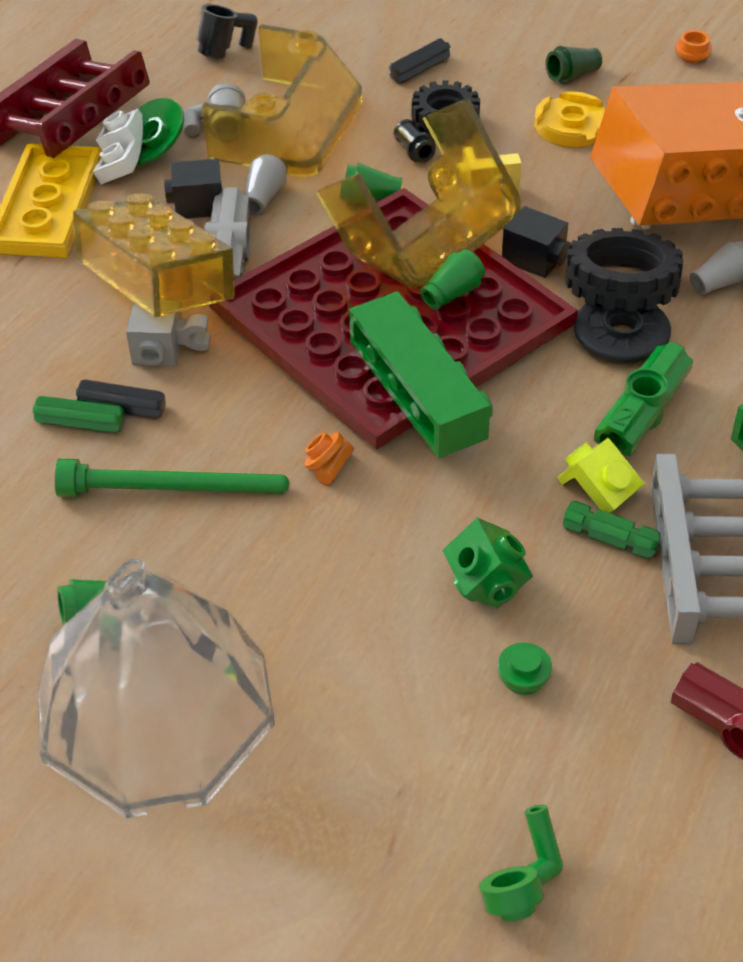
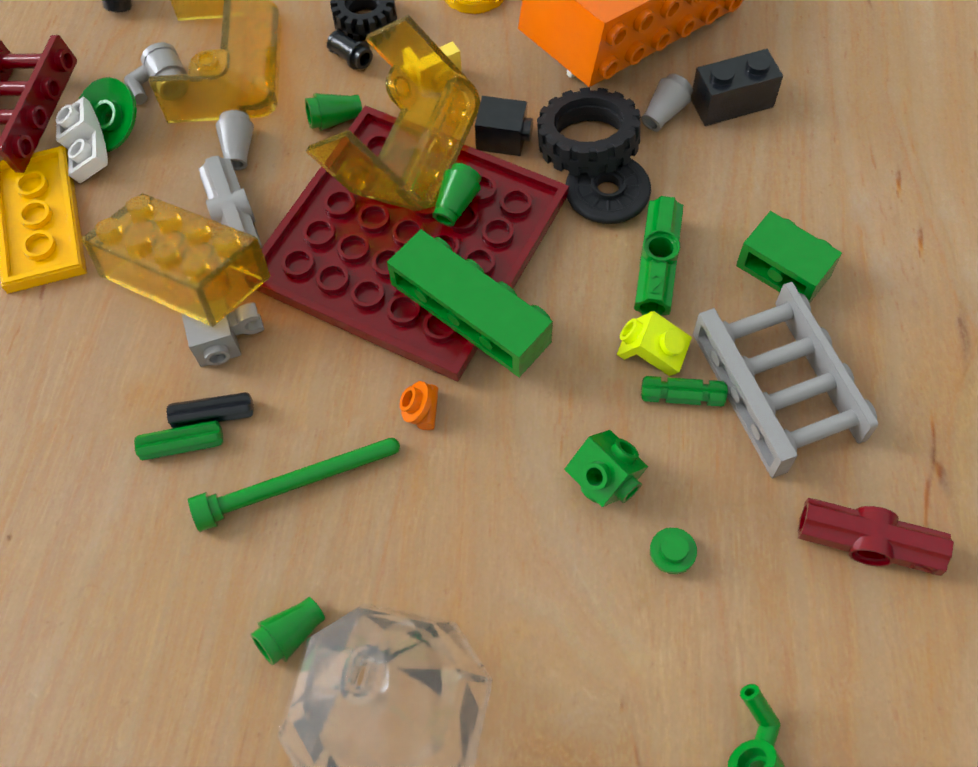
camera: 20 degrees left, 15 degrees up
(193, 187) = (174, 164): black brick -> none

